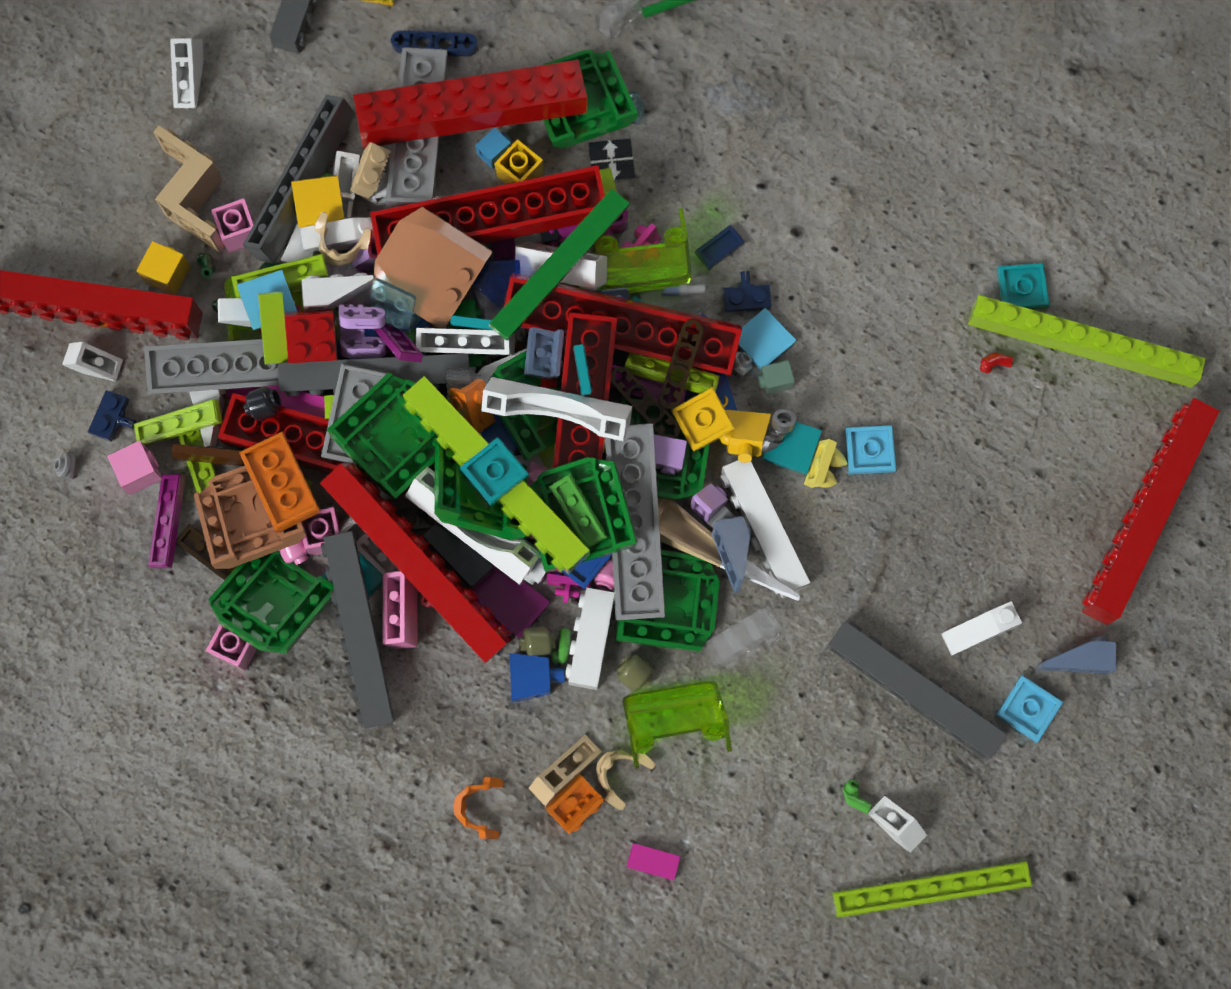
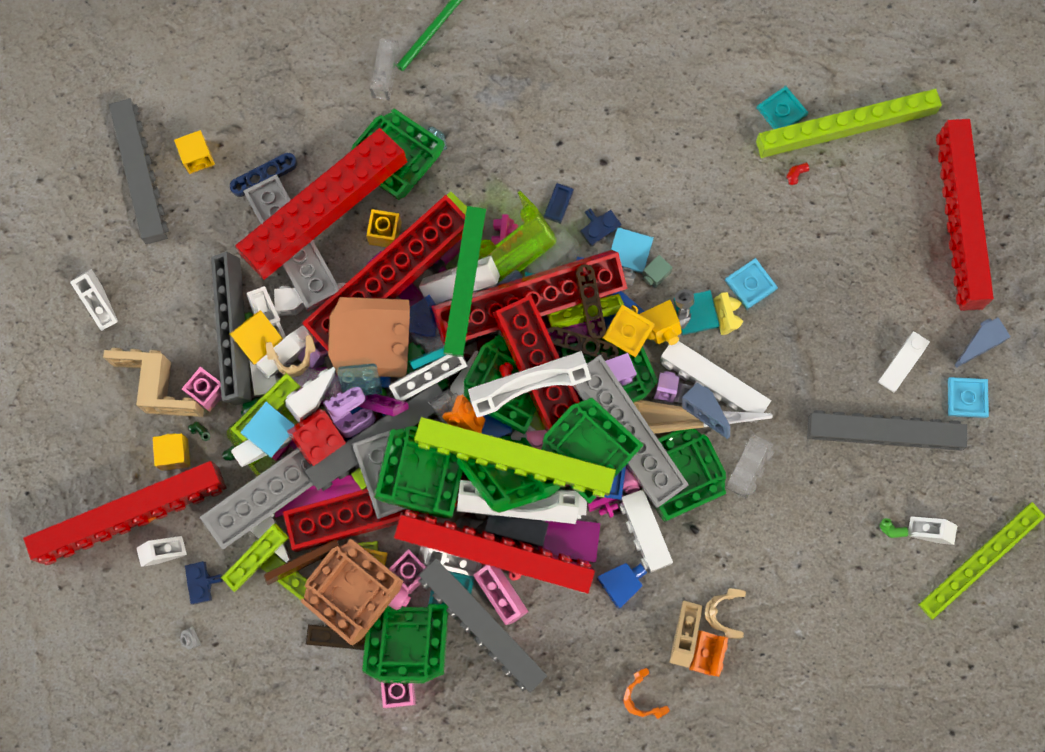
camera: 30 degrees left, 0 degrees up
(135, 467) = (244, 608): bright pink head -> none
(167, 521) = (290, 632): magenta tile -> none
(262, 403) = (311, 506): black head -> none
(273, 327) = (285, 447): lime tile -> none
(279, 482) = (360, 555): orange tile -> none
(370, 170) = (280, 293): tan brick -> none
(493, 147) = (356, 225): dark azure brick -> none
(494, 471) = (514, 454): teal tile -> none
(537, 641) = (610, 556): olive head -> none
(544, 353) = (493, 350): sand blue bracket -> none
(564, 647) = (631, 549): bright green arm -> none
(578, 511) = (588, 447): bright green tile -> none
(582, 370) = (532, 346): teal tile -> none
(613, 155) = (443, 182): black sticker -> none
(634, 673) = (690, 536): olive head -> none
(653, 861) = (785, 659): dark pink tile -> none
(673, 713) = (737, 545): clear neon green windscreen -> none
(684, 290) = (556, 248): light grey piece -> none

